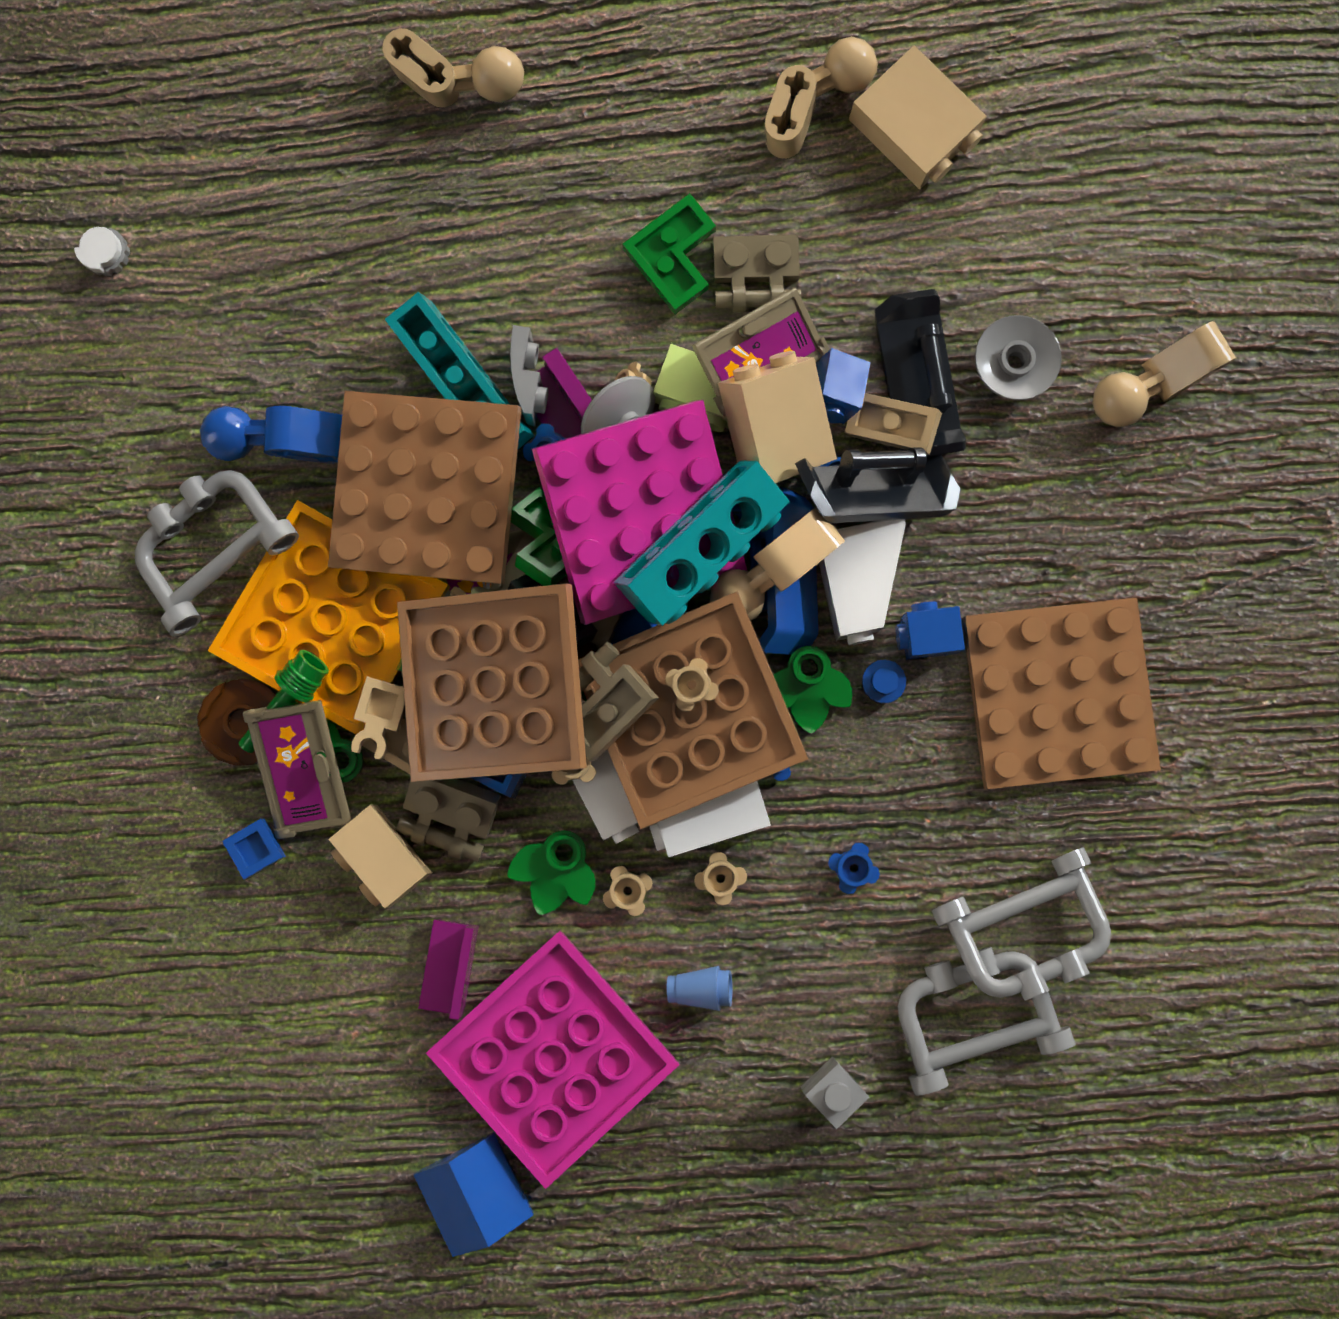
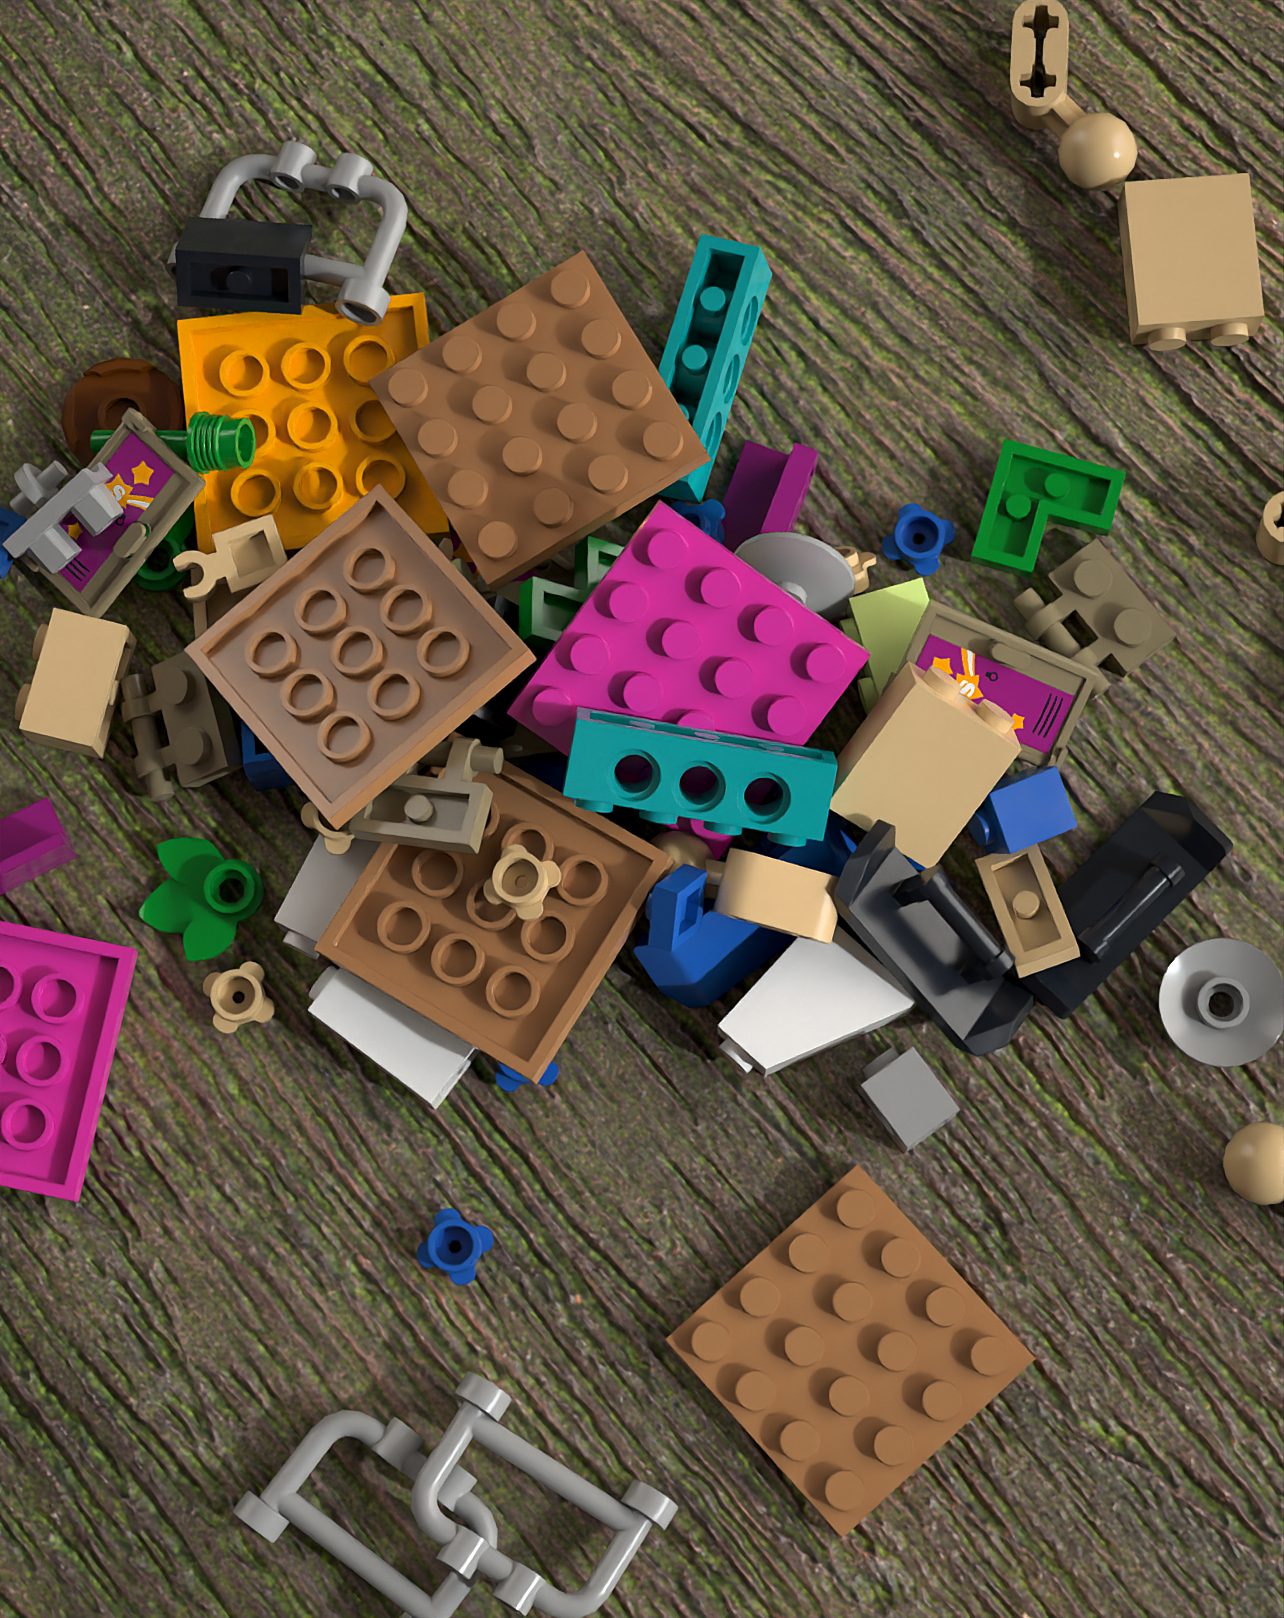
camera: 65 degrees right, 5 degrees down
(204, 589) = (242, 265): none -> black panel
(281, 816) = (82, 496): none -> light grey hips
(284, 433) = (490, 221): blue beam -> none
(527, 383) = (747, 453): light grey slope -> none
(596, 71) = (1190, 260): none -> tan brick
(644, 320) = (913, 522): none -> blue plate
(701, 988) = (183, 1165): medium blue cone -> none
(733, 877) = (317, 1083): tan plate -> none
(766, 610) = (676, 908): none -> blue plate
(812, 695) = (626, 1047): green plate -> none
(834, 1092) = (168, 1408): light grey brick -> none
(883, 681) = (706, 1122): blue plate -> none
(930, 631) = (805, 1132): blue brick -> none
(949, 563) = (906, 1097): none -> light grey brick

